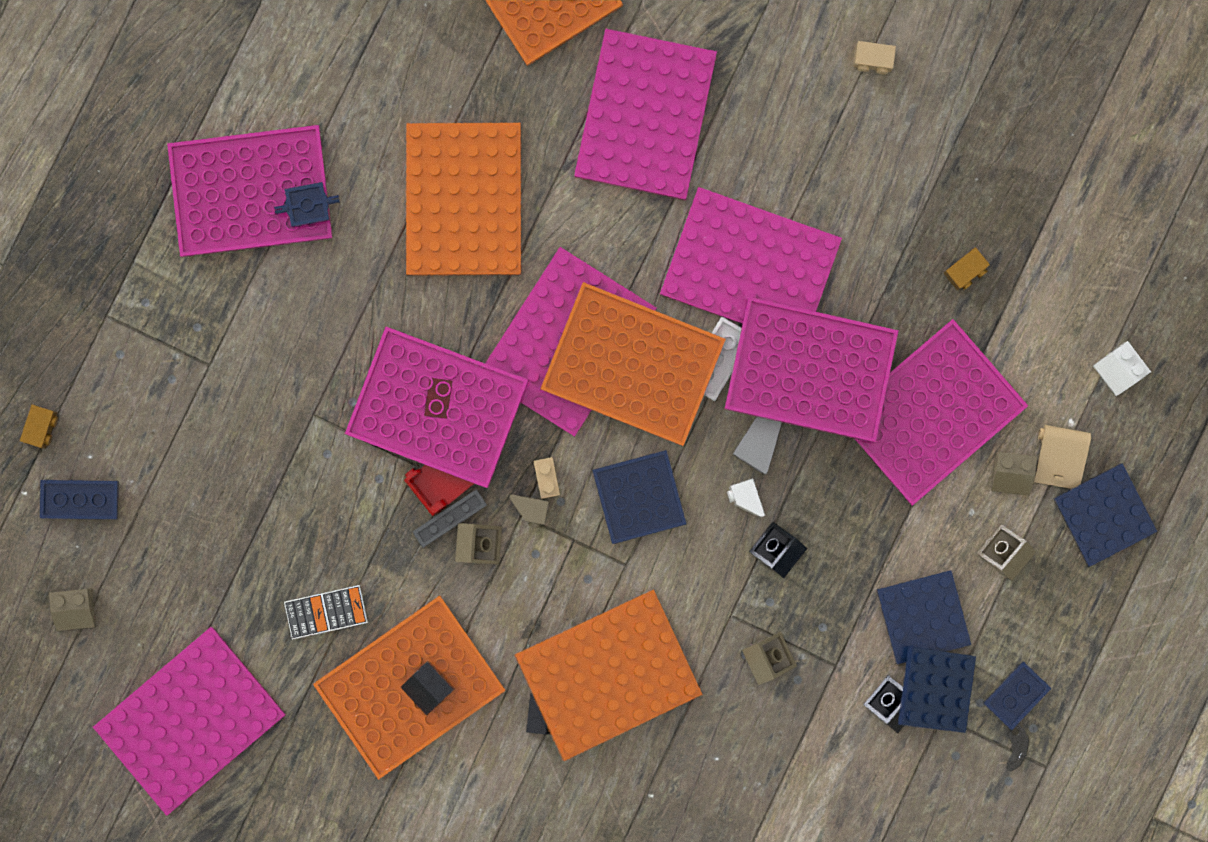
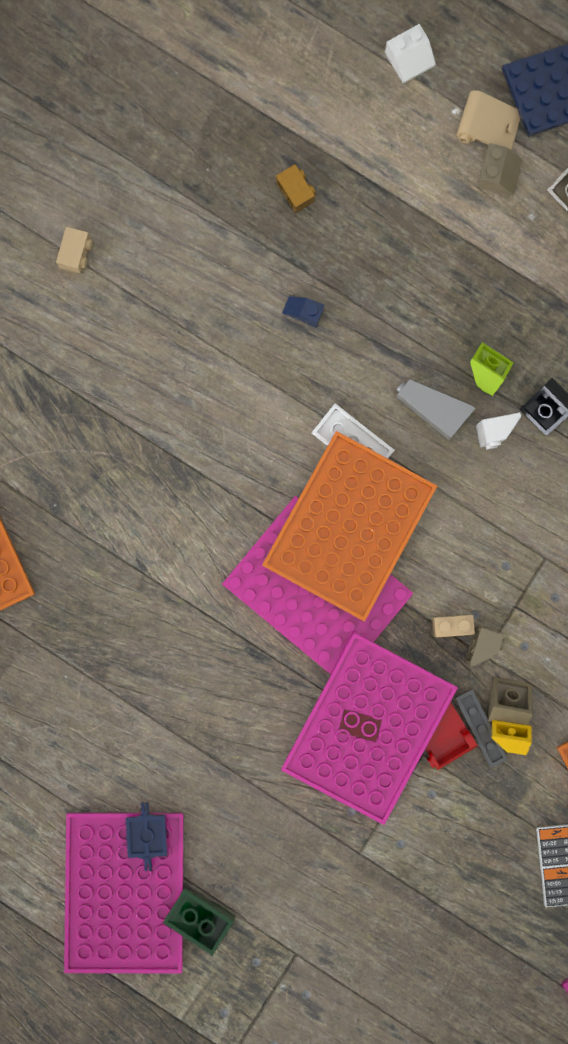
camera: 80 degrees left, 0 degrees up
(233, 266) = (199, 920): none -> dark green slope
(445, 547) = (512, 736): none -> yellow slope
(463, 199) = (160, 675): orange plate -> none
(639, 497) = (481, 536): dark blue plate -> none
(645, 114) = (100, 482): dark pink plate -> none
(743, 253) = (265, 398): dark pink plate -> none
(809, 485) = (489, 368): none -> lime slope
(811, 369) = (377, 350): dark pink plate -> none
(843, 293) = (304, 310): none -> dark blue slope
(939, 412) = (431, 240): dark pink plate -> none

